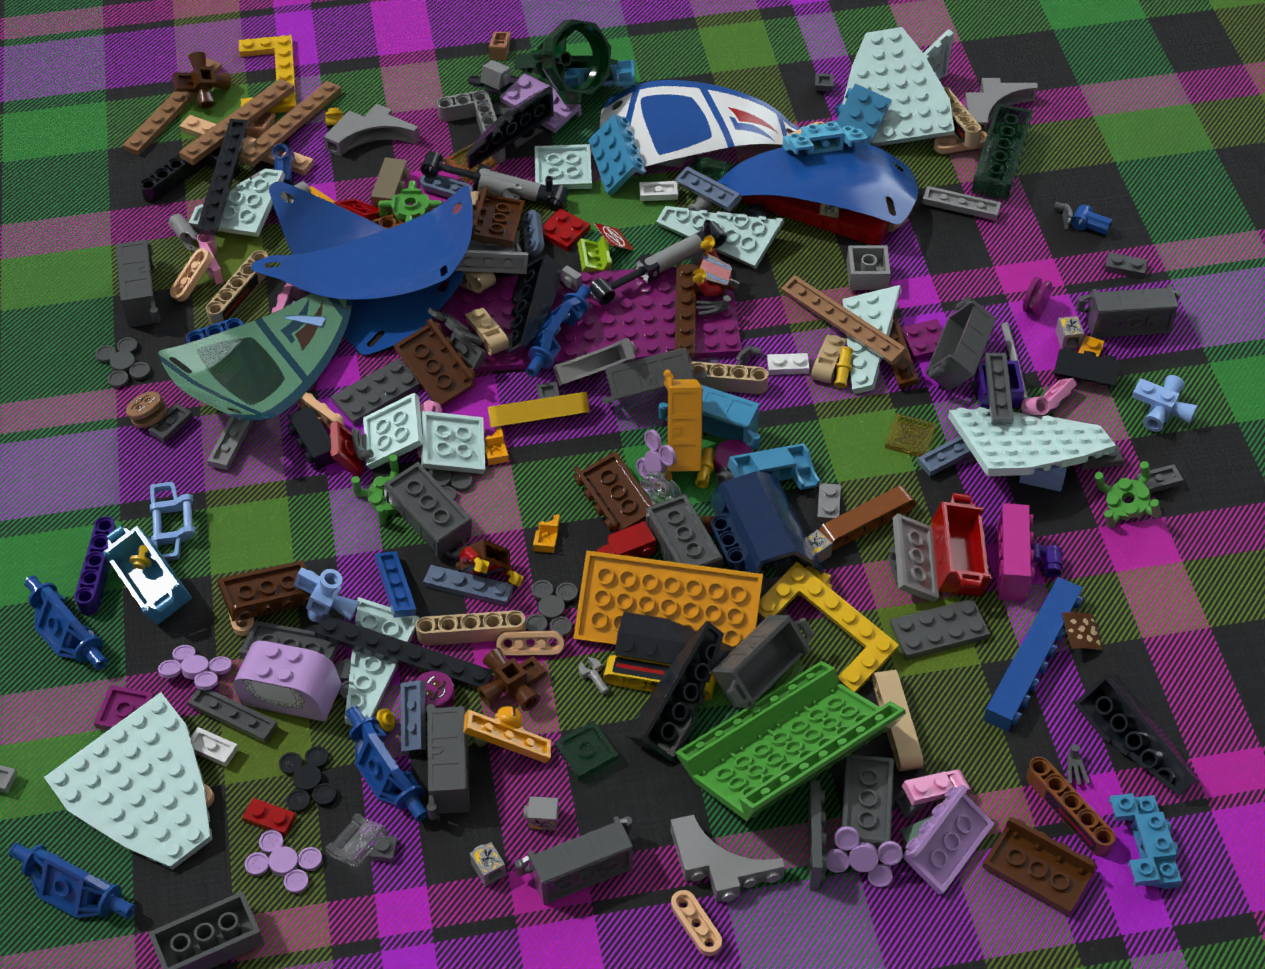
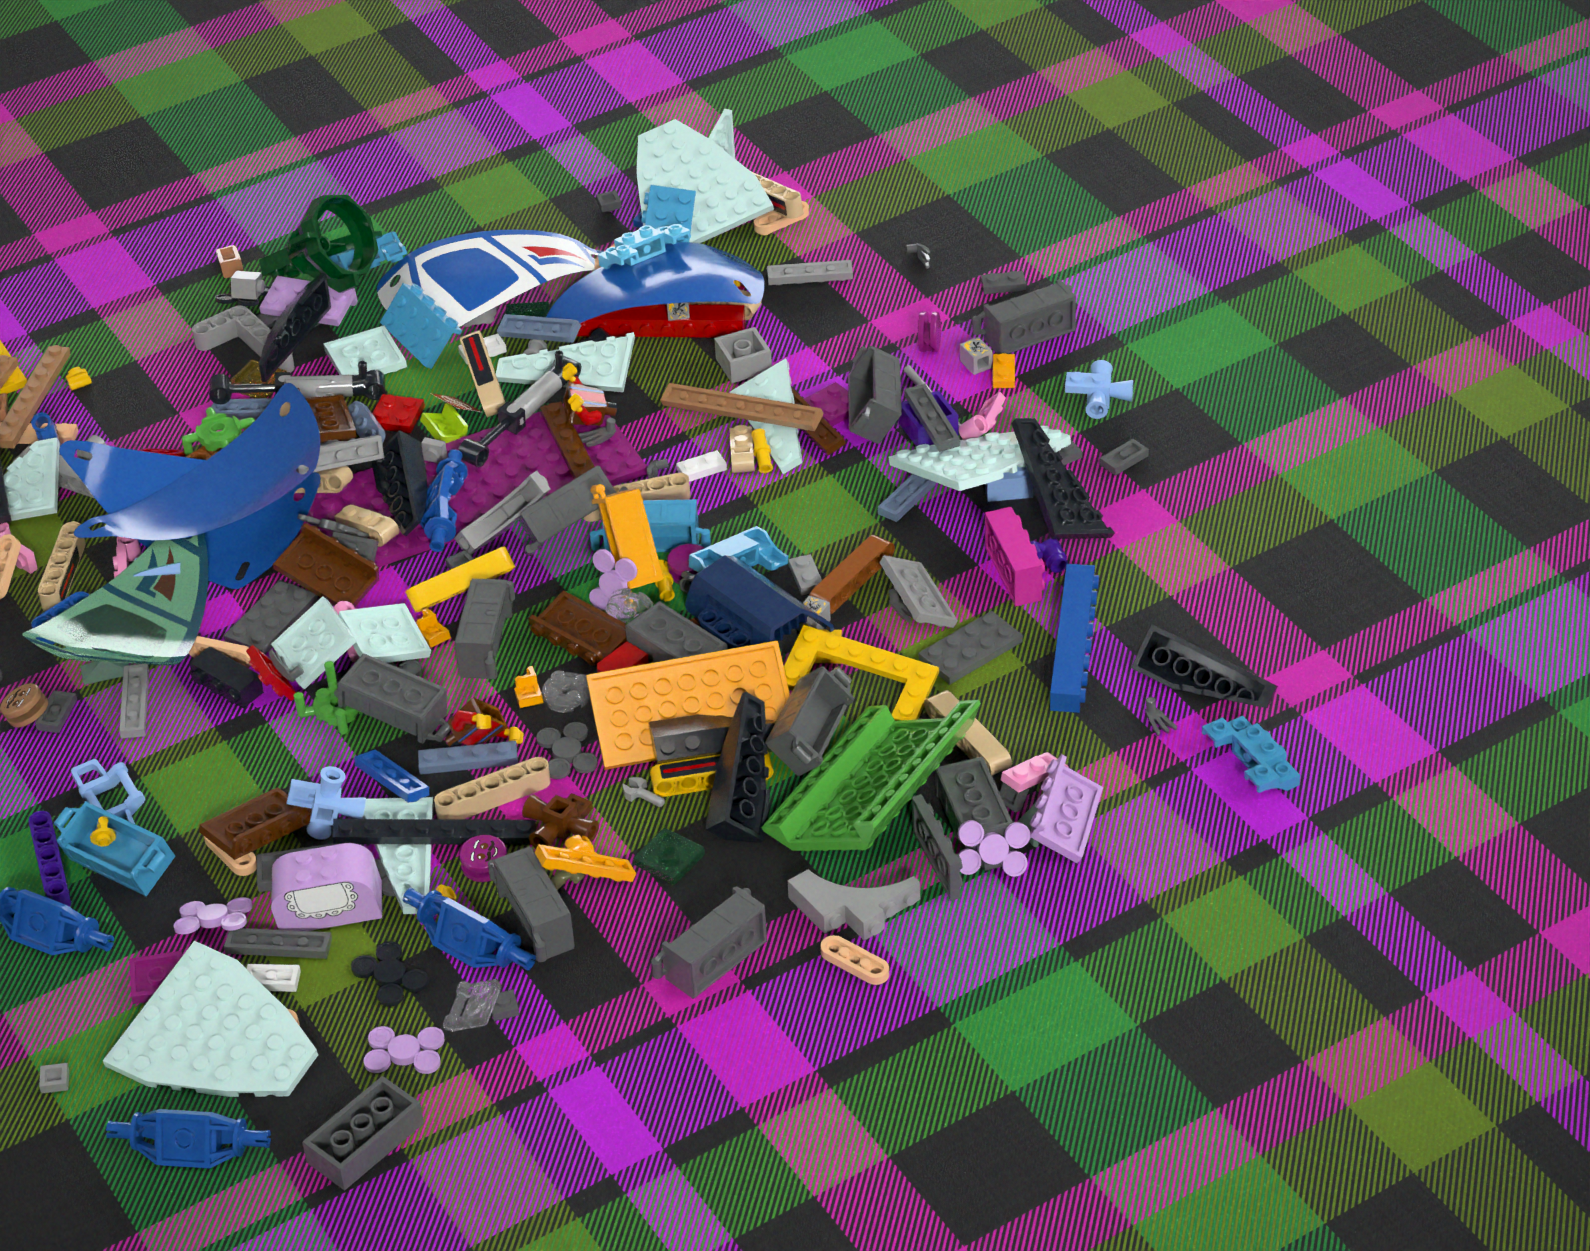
camera: 20 degrees left, 10 degrees down
(269, 817) = (366, 1017): red plate -> none
(375, 125) = (132, 372): light grey arch -> none
(390, 180) = (179, 419): dark tan brick -> none
(413, 716) = (475, 879): sand blue plate -> none
(487, 863) = (620, 980): light grey brick -> none
(533, 464) = (482, 627): none -> dark grey container
(541, 645) = (572, 781): light nougat plate -> none
(542, 813) = (653, 921): light grey brick -> none
(571, 540) = (558, 683): none -> clear plate
(646, 216) = (483, 372): none -> beam
(910, 435) = (859, 492): clear yellow tile -> none
(960, 547) = (958, 568): red container -> none
(992, 91) = (797, 166): light grey arch -> none
(1002, 152) = (830, 213): clear green brick -> none
(1040, 865) = (1162, 804): reddish brown bracket -> none
(1073, 817) = (1168, 750): dark orange beam -> none
(1080, 502) = (1057, 489): none -> black wing
(1082, 630) = (1110, 603): reddish brown sticker -> none
(1086, 218) = (945, 251): blue piece -> none
(1087, 367) = (1008, 379): black brick -> none
(1128, 488) = (1106, 470): bright green plate -> none

